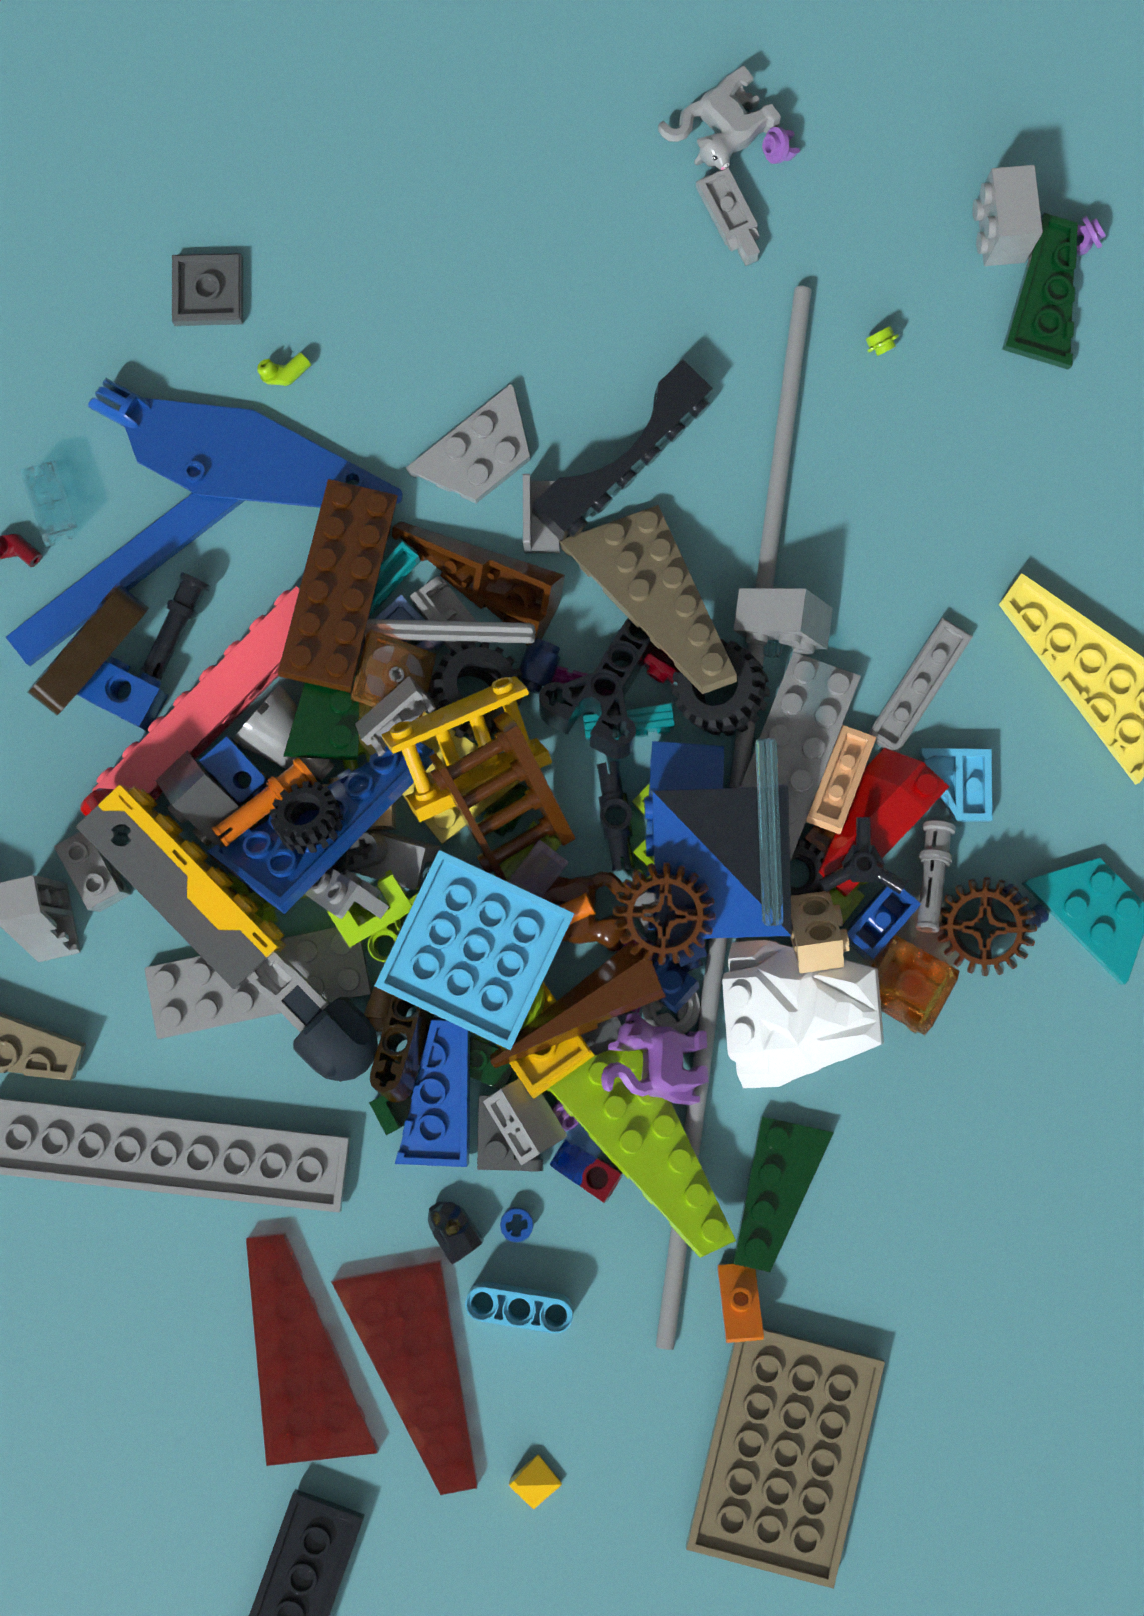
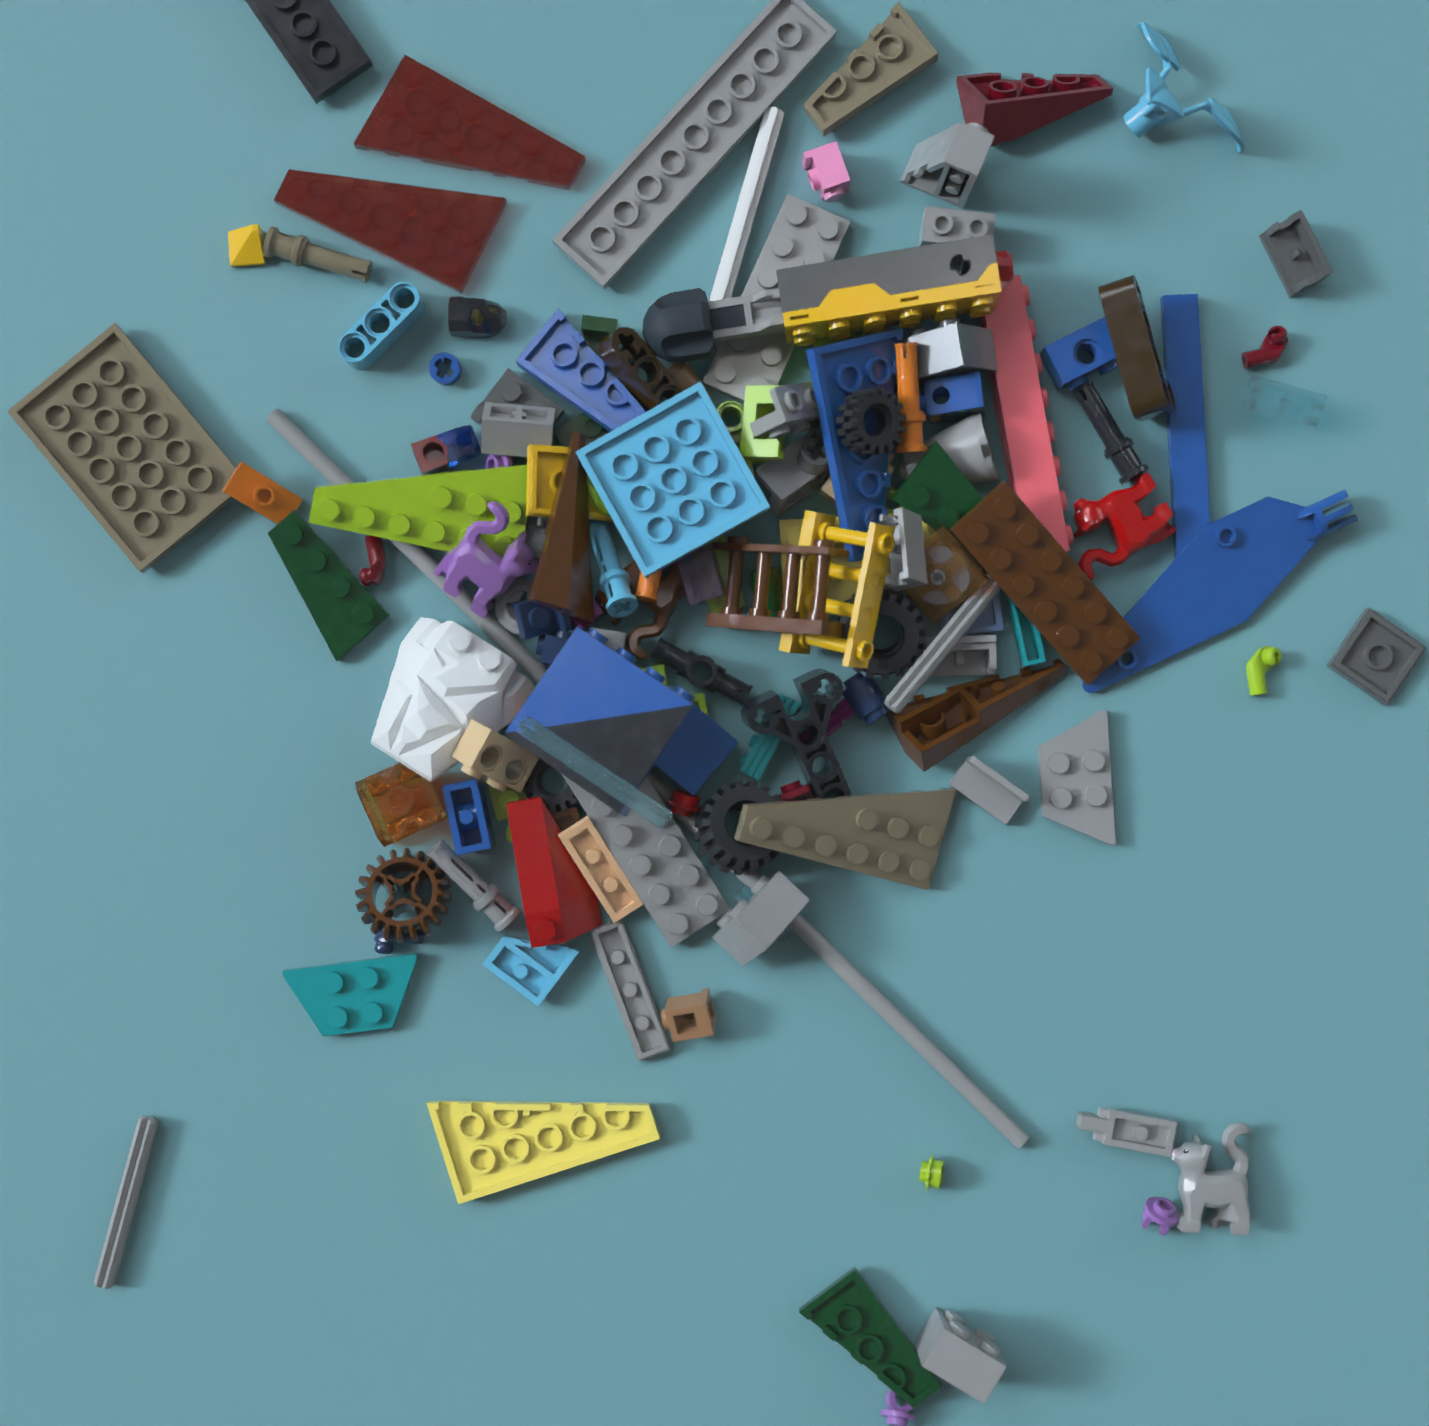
camera: 125 degrees right, 5 degrees up
(115, 1017) = (827, 171): none -> bright pink brick
(192, 1065) = (747, 204): none -> white axle
(239, 560) = (1125, 521): none -> red animal
(504, 1428) = (302, 252): none -> dark tan pin
(574, 498) = (980, 821): black arch -> none
(593, 941) = (613, 579): none -> medium azure pin
(681, 913) = (601, 634): reddish brown gear -> none
(723, 1160) = (377, 561): none -> dark red arm
(735, 750) = (683, 803): none -> red plate
(863, 863) = (519, 832): black piece -> none
(905, 620) = (690, 1026): none -> medium nougat brick

